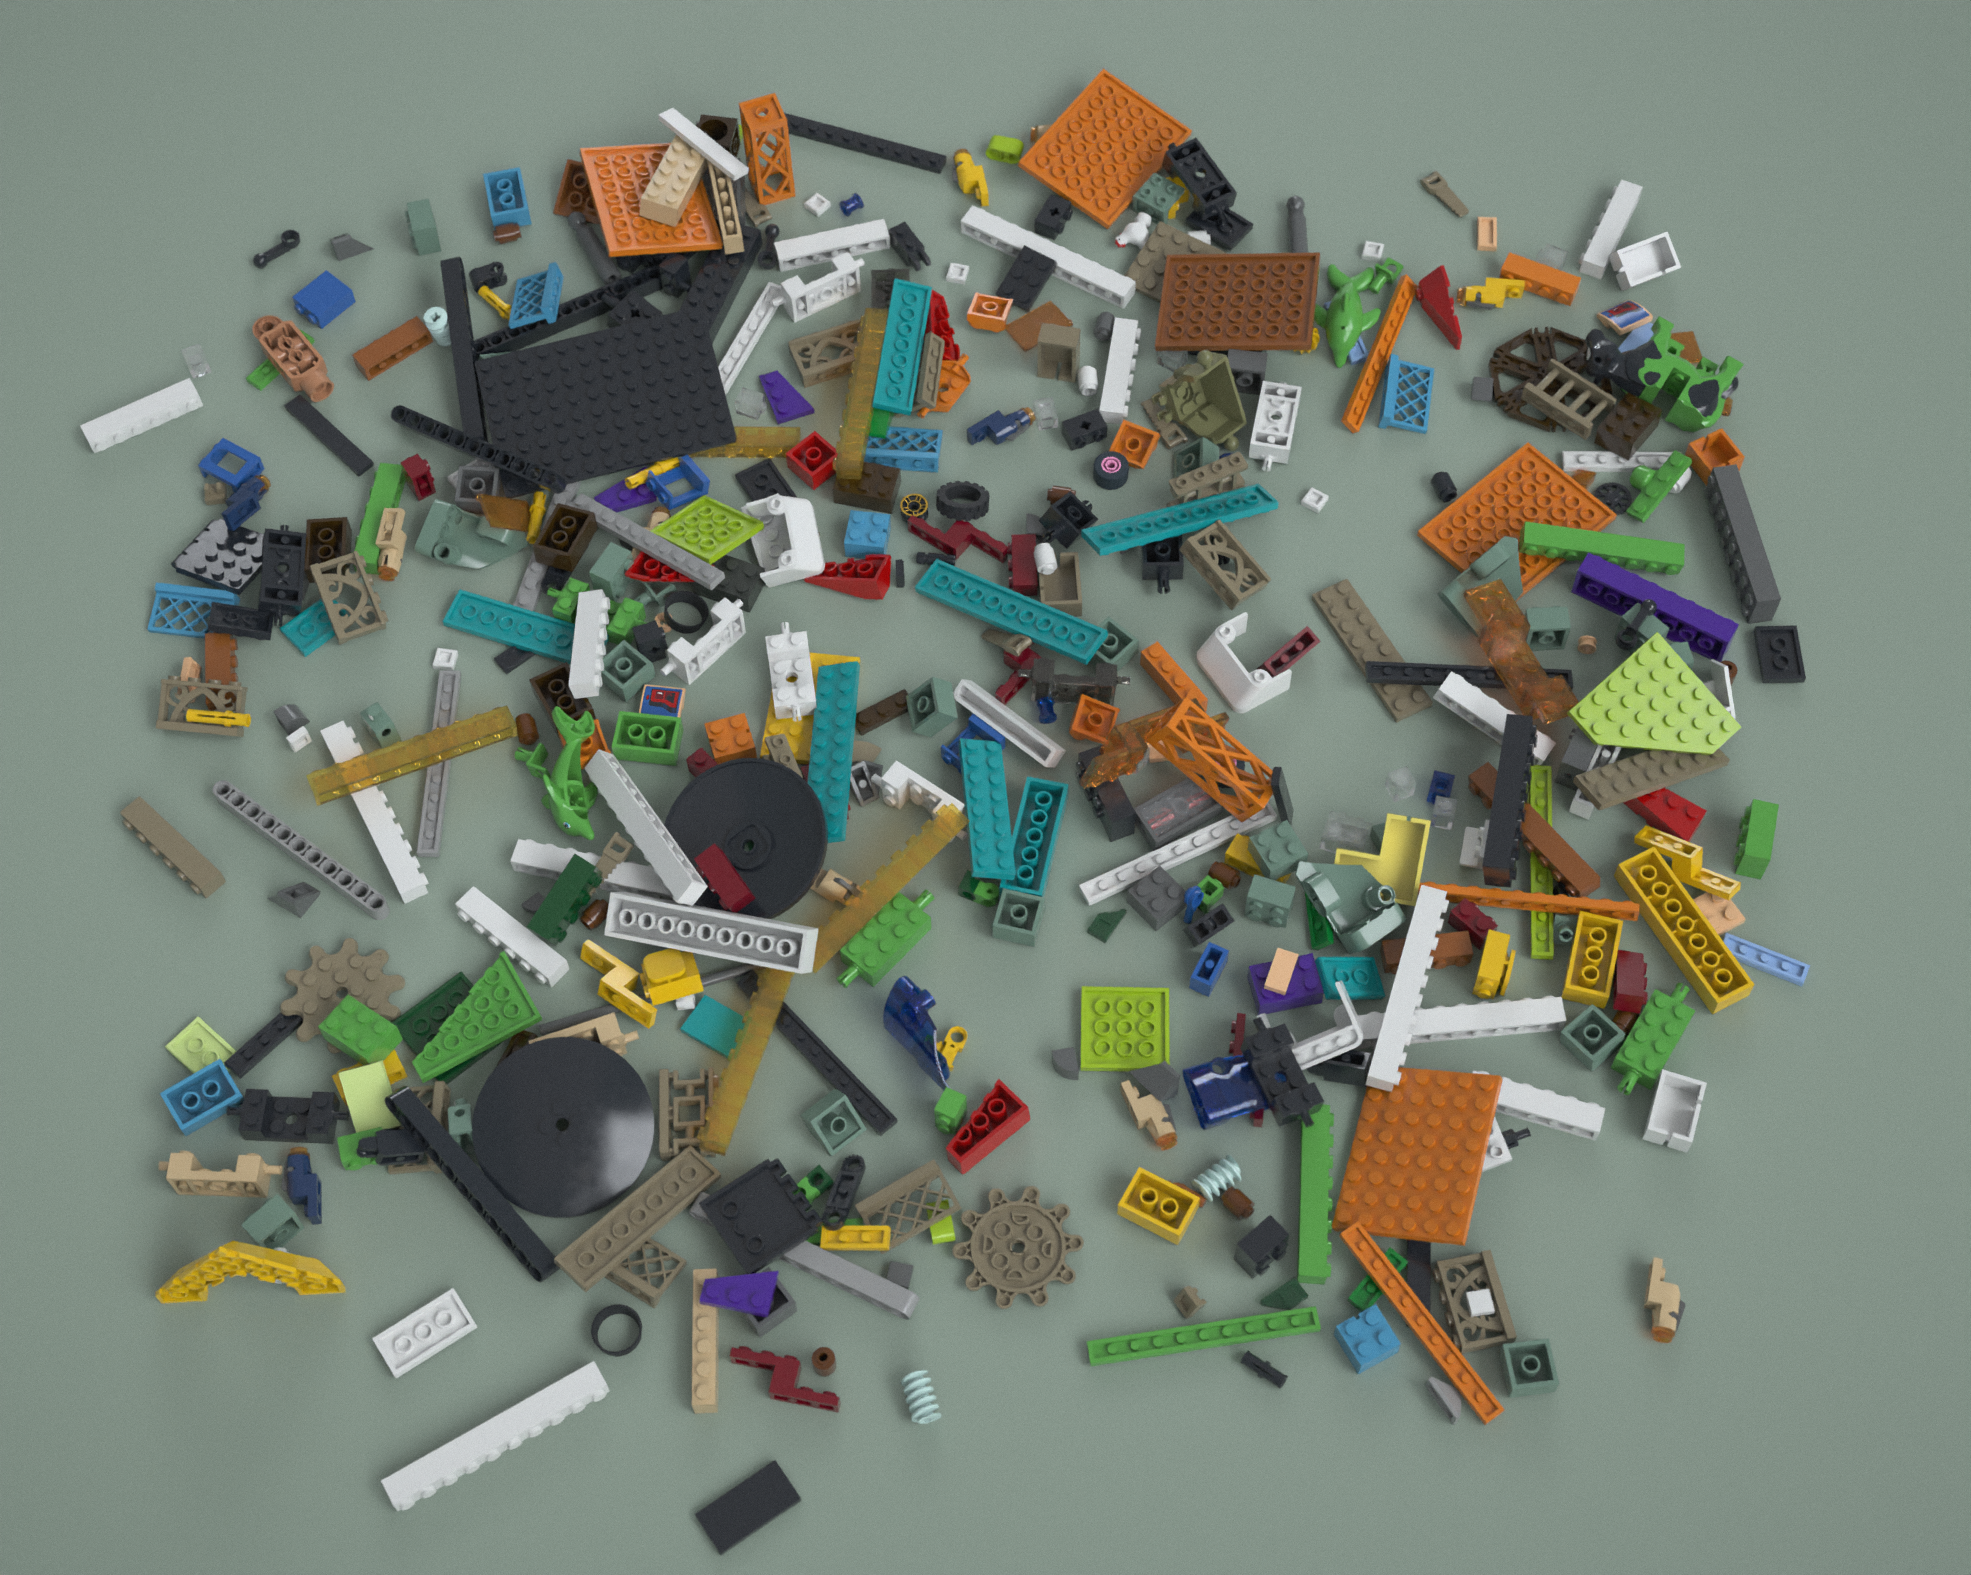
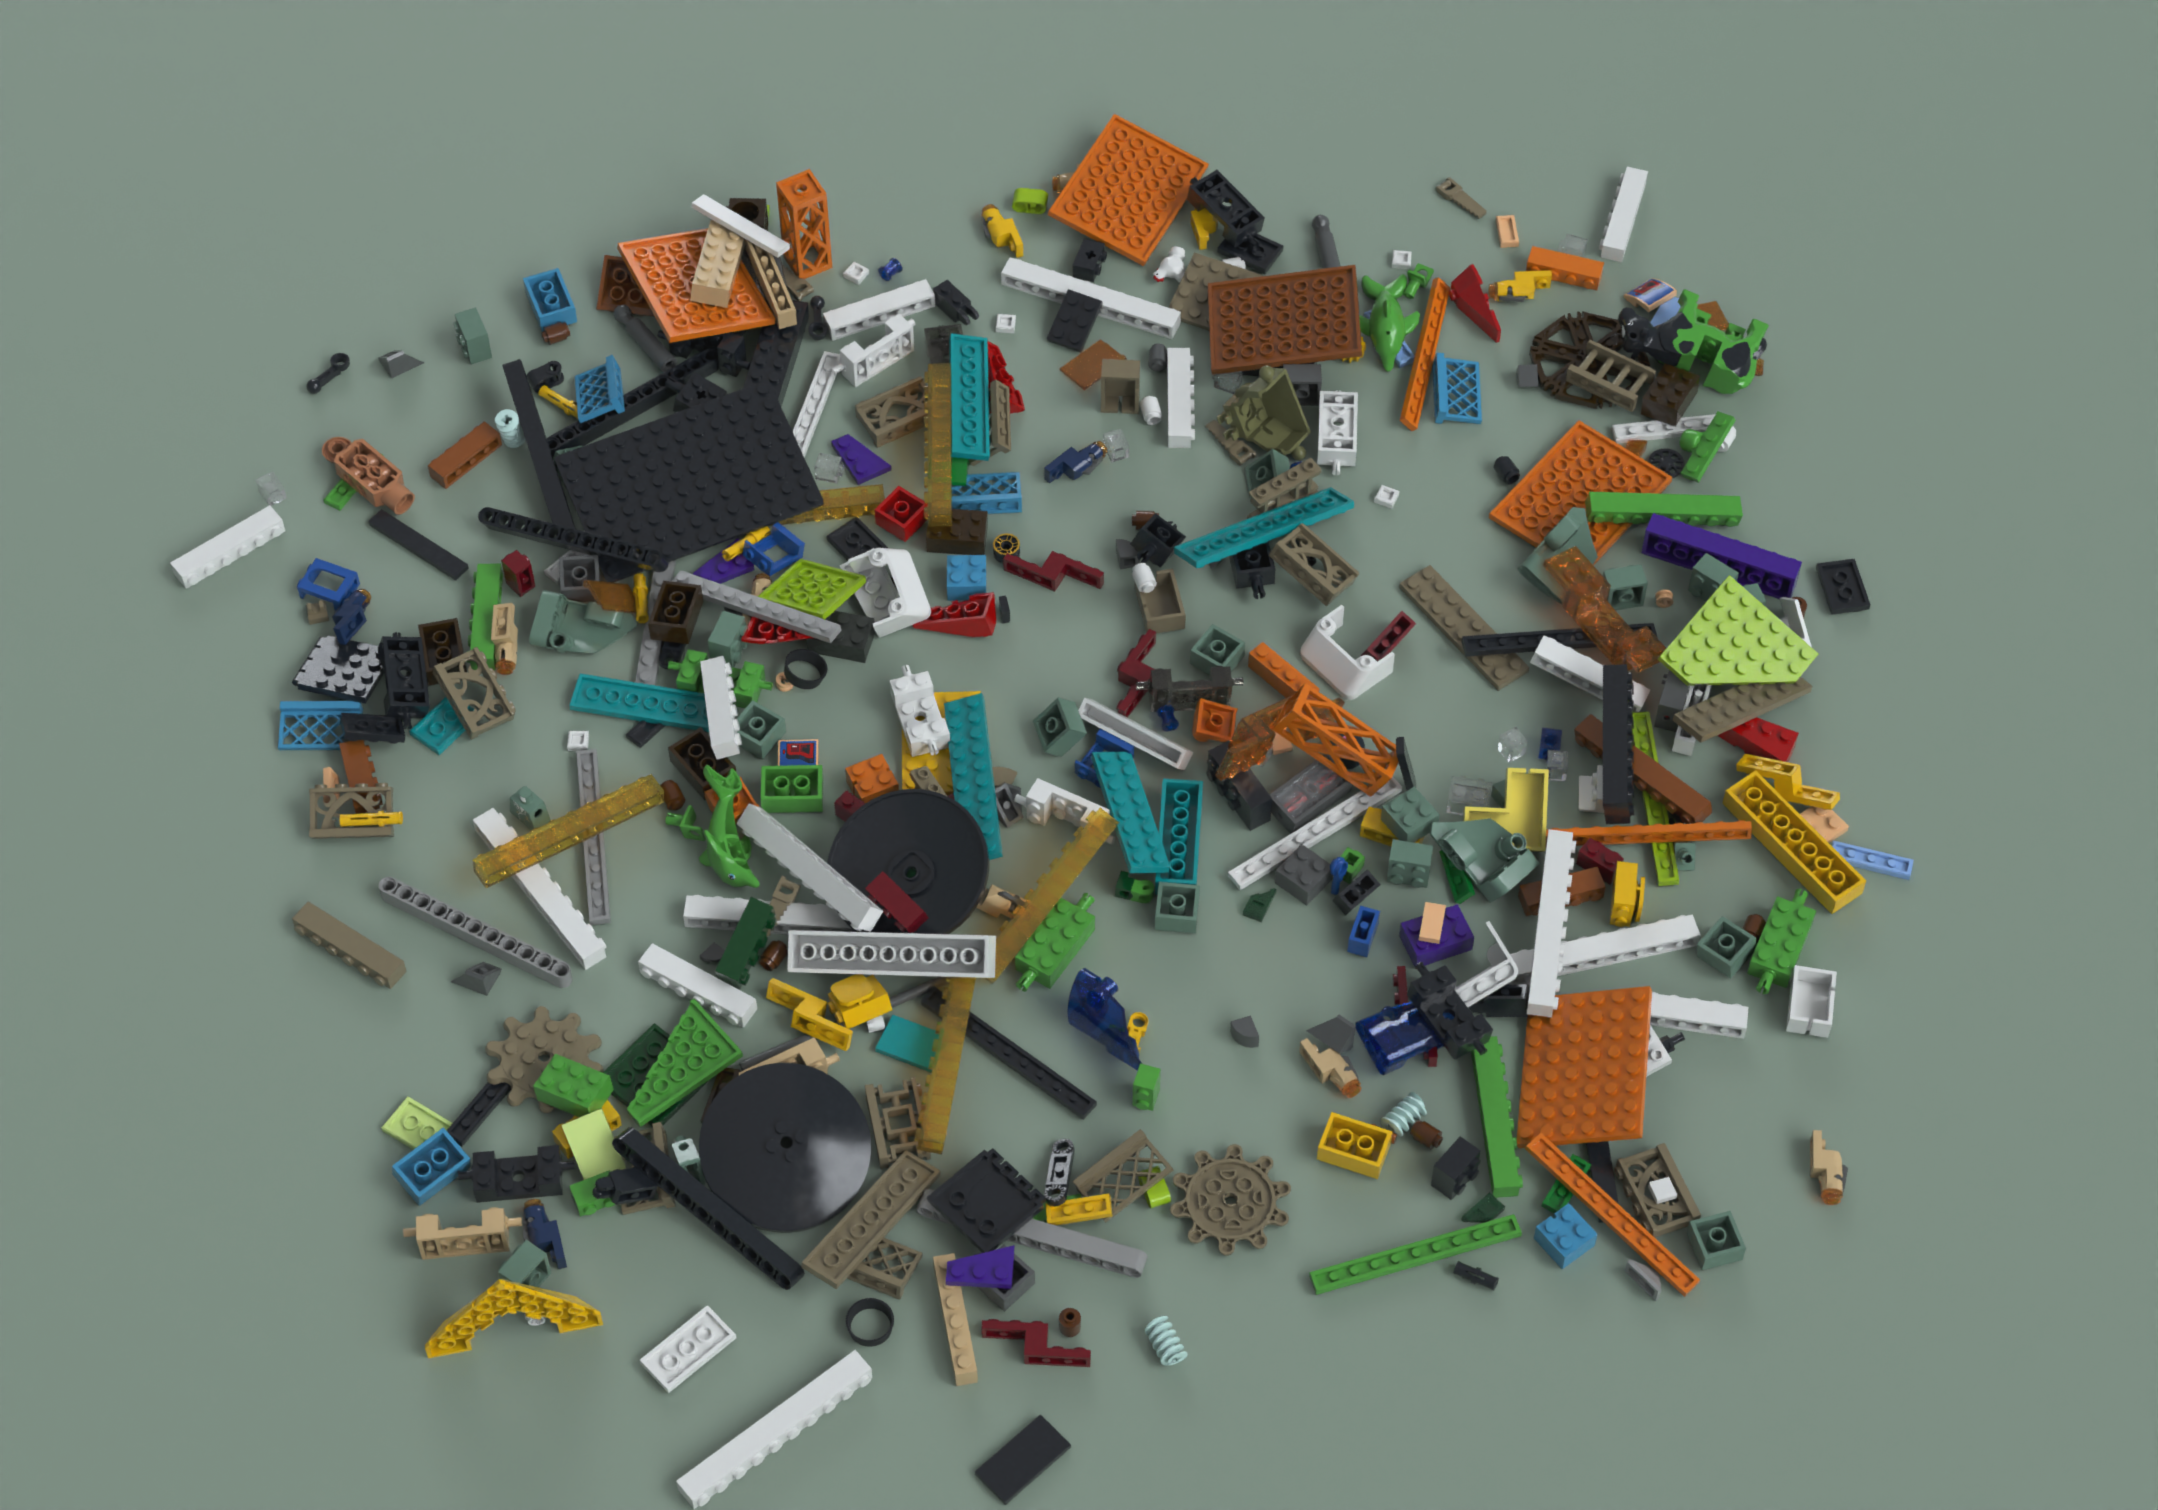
camera: 10 degrees left, 5 degrees down
(290, 718) = (438, 813): dark grey brick -> none
(299, 739) = (451, 831): white tile -> none
(323, 299) = (386, 416): blue brick -> none
(648, 596) = (766, 657): sand green bracket -> none
(650, 641) = (777, 697): black brick -> none
(691, 661) = (819, 711): white brick -> none
(815, 1183) = (1032, 1166): dark green leg -> none
(833, 1121) = (1037, 1111): sand green slope -> none
(865, 144) = (899, 211): black plate -> none
(881, 712) = (1012, 738): dark brown plate -> none
(900, 1274) = (1125, 1236): dark grey tile -> none
(921, 558) = (1035, 592): black axle -> none
(955, 379) = (1022, 423): orange plate -> none
(962, 511) = (1051, 544): black tyre -> none
(987, 1128) = (1184, 1097): red wedge -> none
(989, 312) = (1044, 356): orange slope -> none
(1011, 611) = (1119, 630): teal plate -> none
(1011, 643) = (1125, 660): dark tan piece -> none
(1023, 564) = (1121, 588): dark red brick -> none
(1084, 429) = (1156, 456): black brick -> none
(1110, 470) = (1188, 491): black wheel -> none
(1124, 1028) = (1292, 994): lime plate -> none
(1135, 443) = (1206, 465): orange slope -> none
(1157, 198) = (1187, 231): sand green bracket -> none
(1189, 1302) = (1397, 1226): dark tan tile -> none
(1225, 874) = (1364, 845): reddish brown brick -> none
(1358, 976) = (1503, 917): teal tile -> none
(1592, 959) = (1715, 878): yellow brick -> none
(1629, 982) = (1752, 893): dark red brick -> none
(1644, 261) = (1661, 240): white piece -> none
(1647, 608) = (1716, 556): black piece -> none
(1717, 452) = (1758, 413): orange piece -> none
(1742, 544) = (1793, 490): dark grey brick -> none
(1756, 838) = (1847, 753): bright green brick -> none

